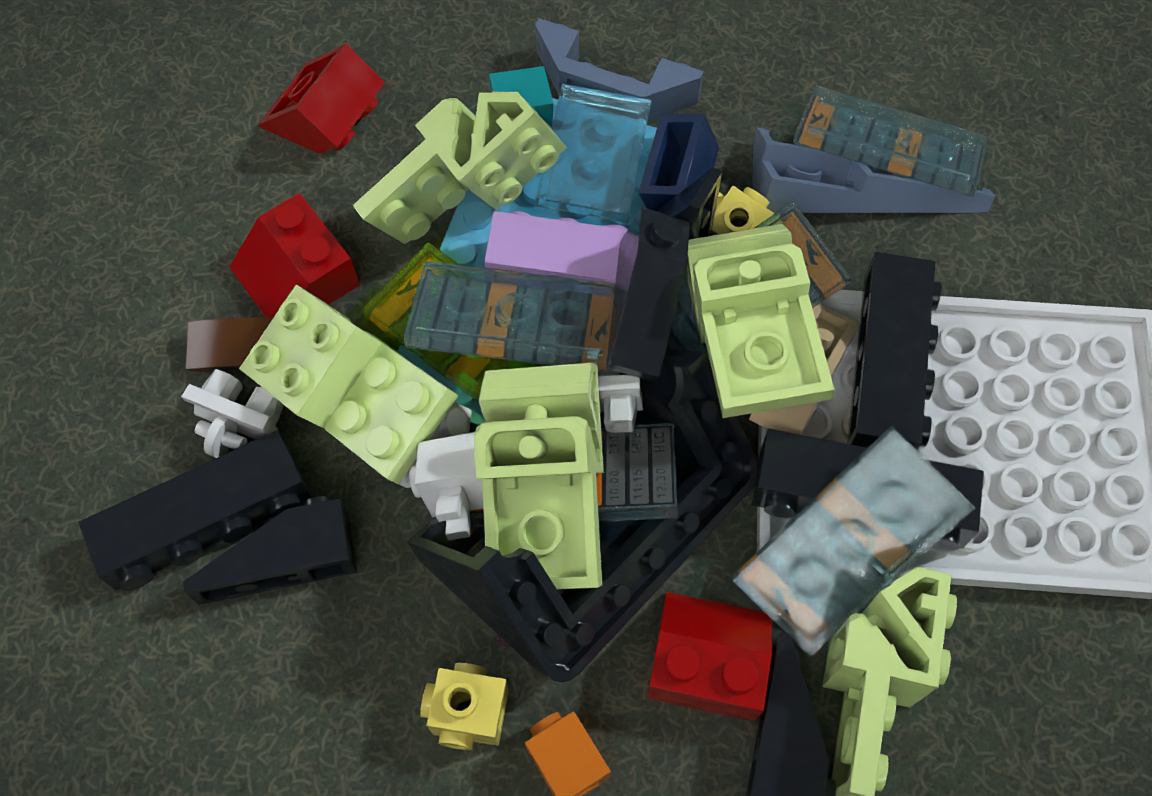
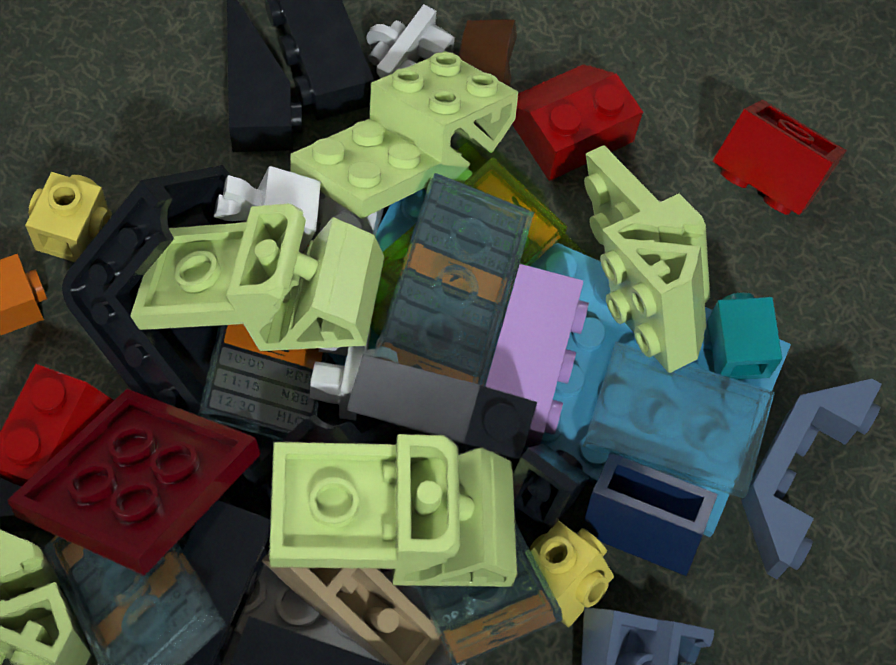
camera: 90 degrees right, 0 degrees up
(758, 554) = (135, 480): none -> dark red plate

